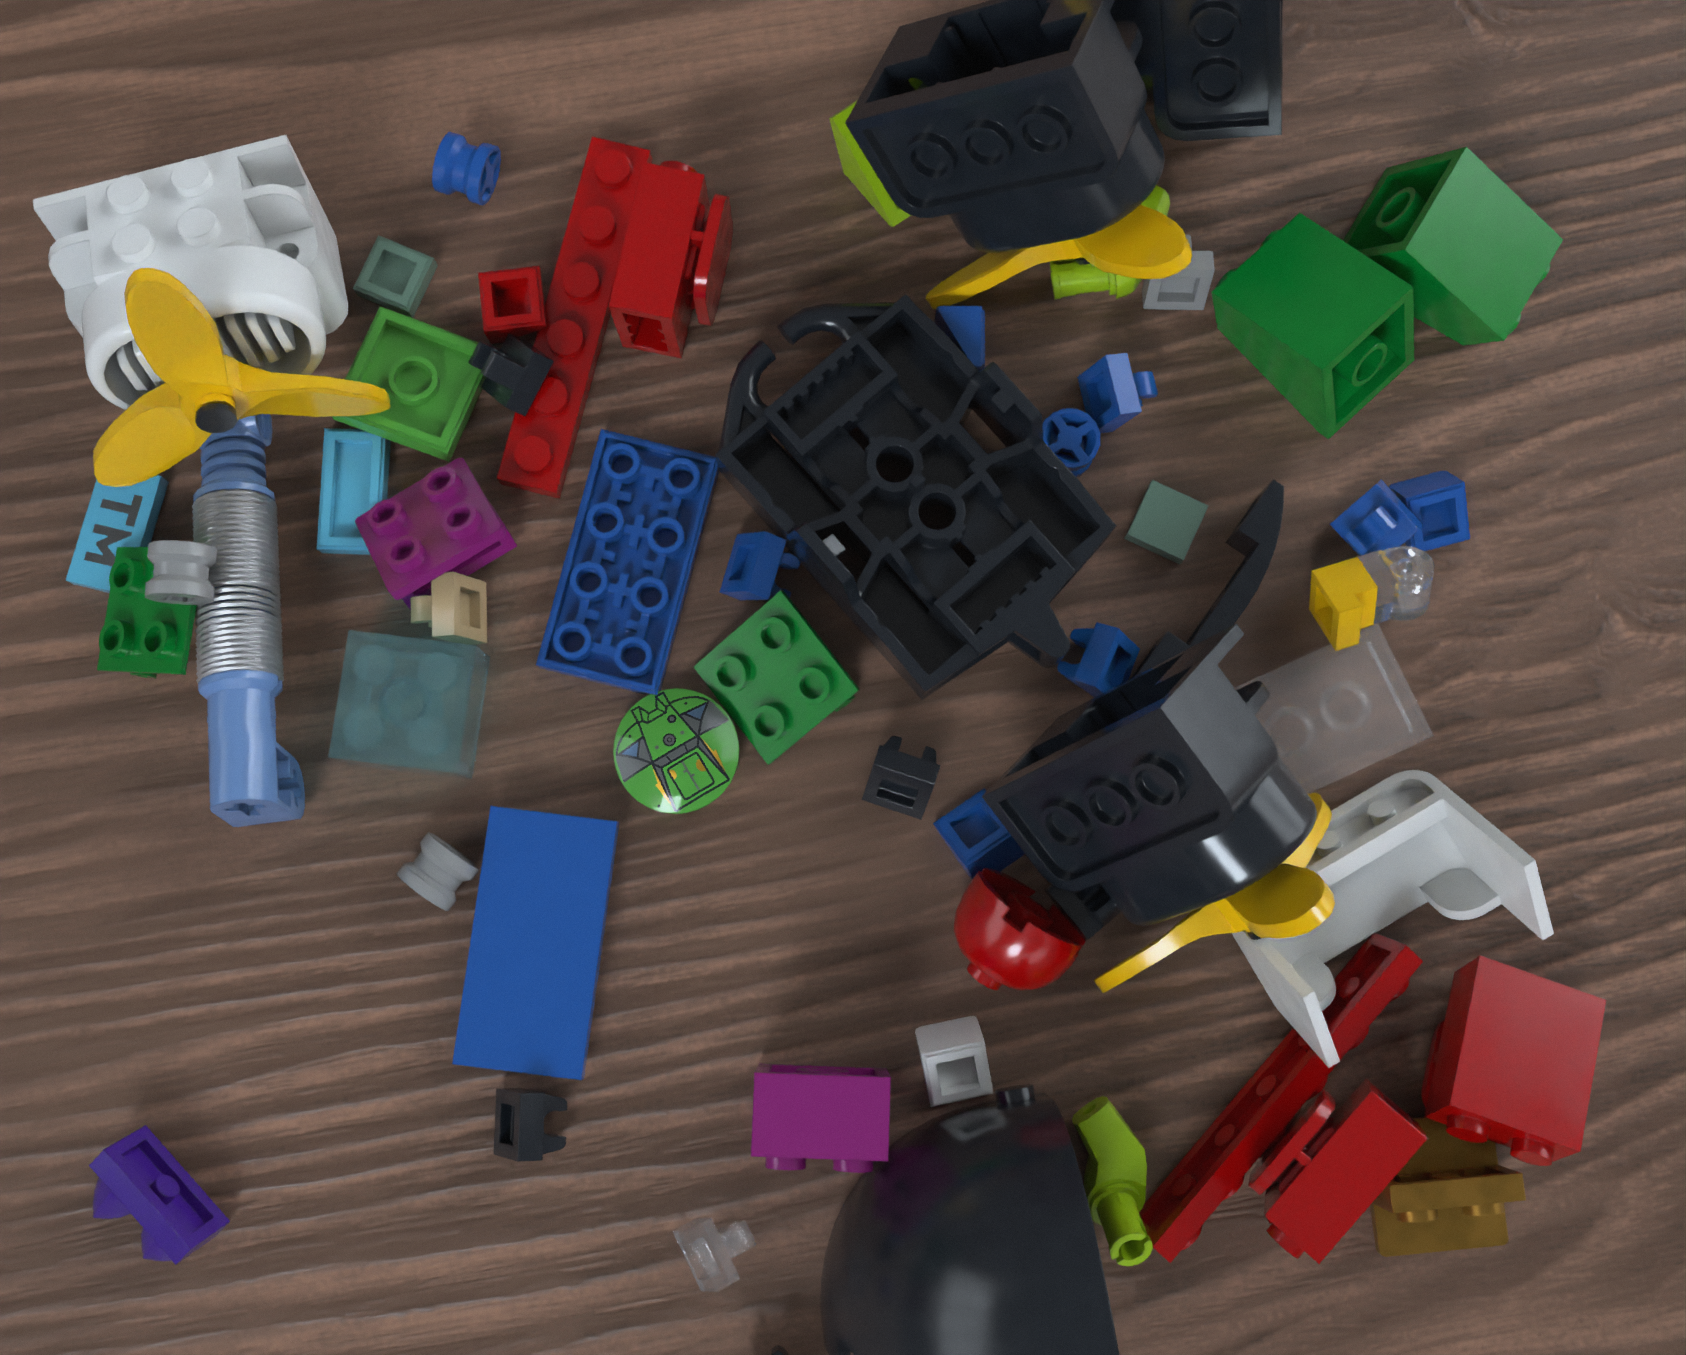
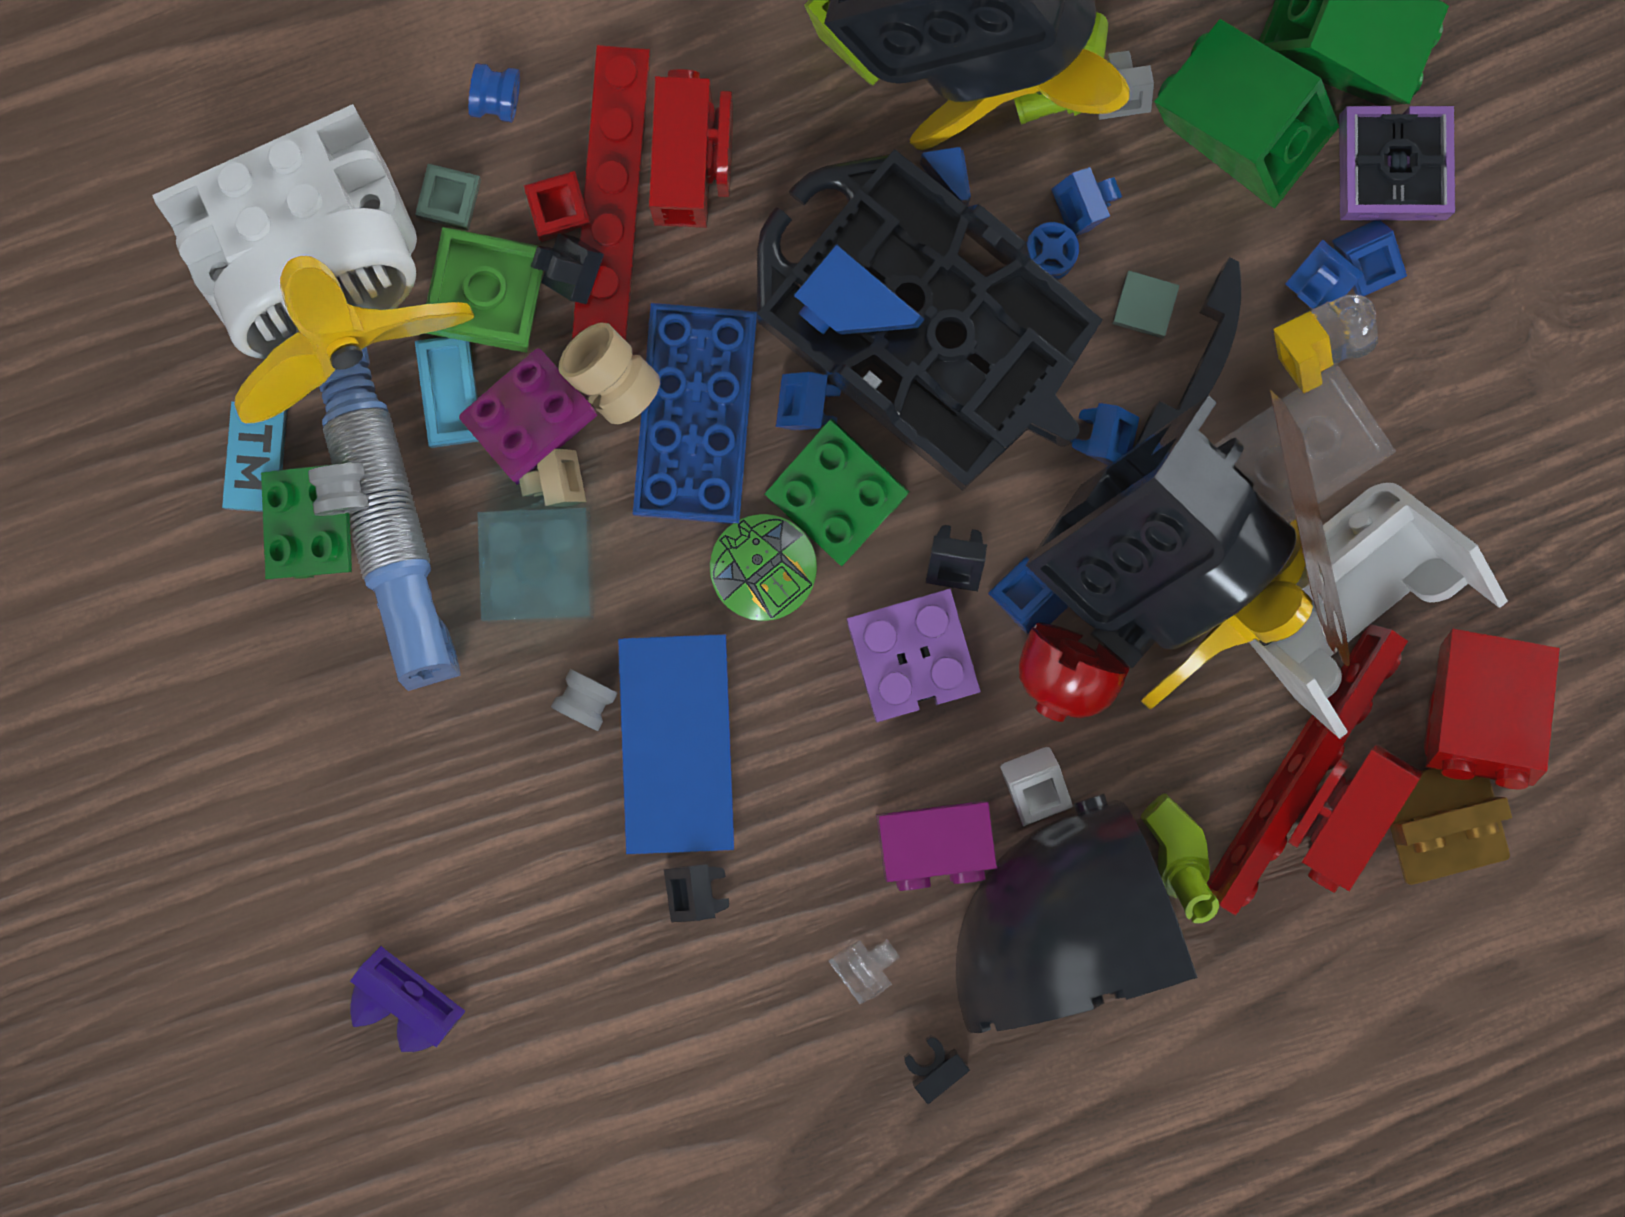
camera: 10 degrees left, 5 degrees up
(529, 489) = (609, 374): none -> tan wheel
(827, 450) = (852, 299): none -> blue slope
(828, 848) = (902, 680): none -> medium lavender piece
(1333, 810) = (1310, 527): none -> reddish brown piece
(1478, 407) = (1397, 163): none -> piece

